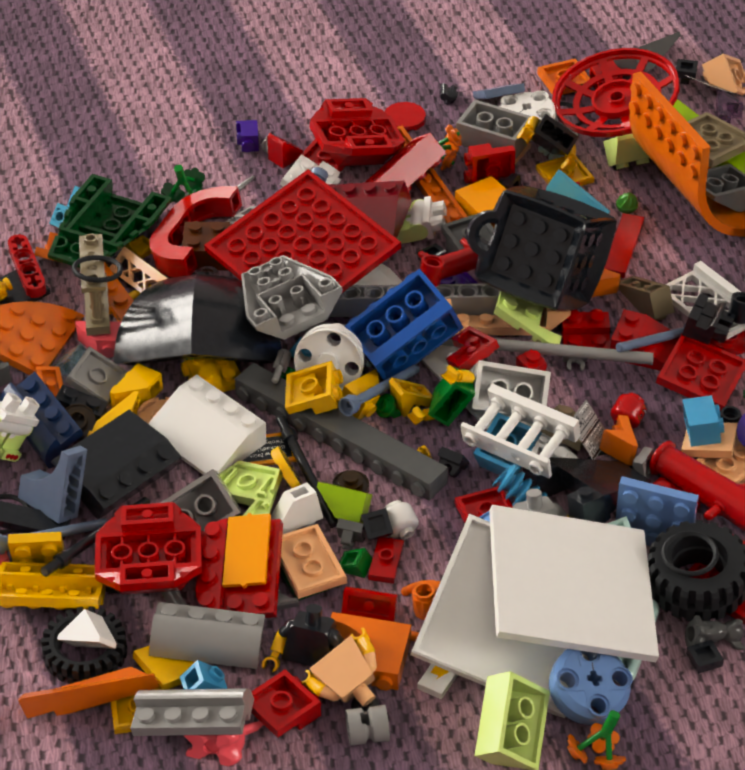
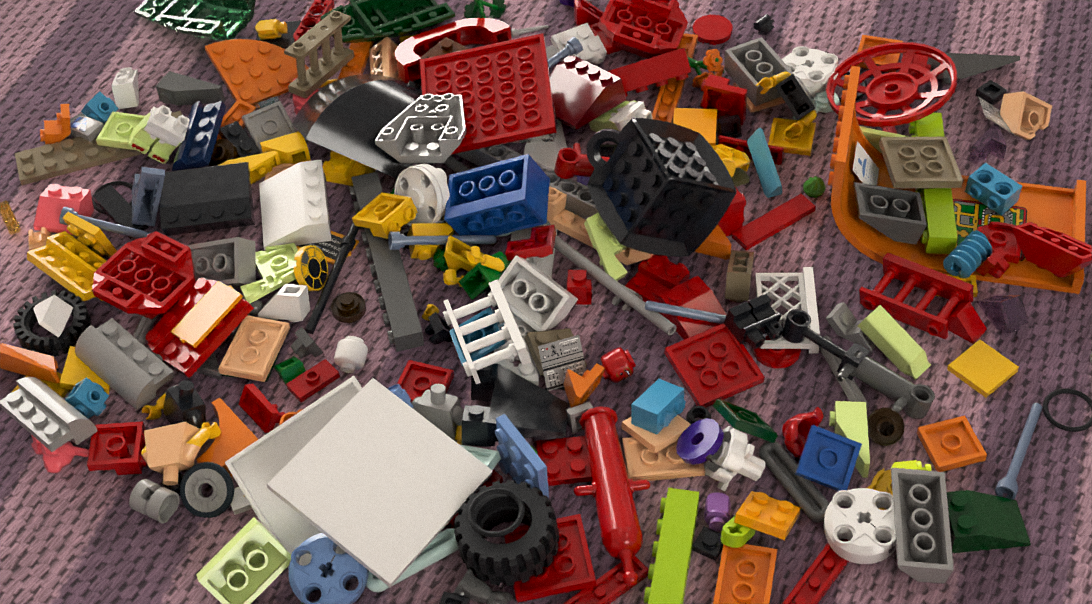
camera: 40 degrees right, 5 degrees up
(64, 557) = (94, 250): black bar -> none
(97, 279) = (306, 51): black tyre -> none
(281, 363) = (389, 185): light grey axle -> none
(345, 502) = (324, 317): lime slope -> none
(377, 524) = (324, 347): black tile -> none
(388, 689) = (222, 490): none -> wheel
(499, 91) = (803, 40): sand blue tile -> none
(514, 484) = (452, 380): dark azure piece -> none

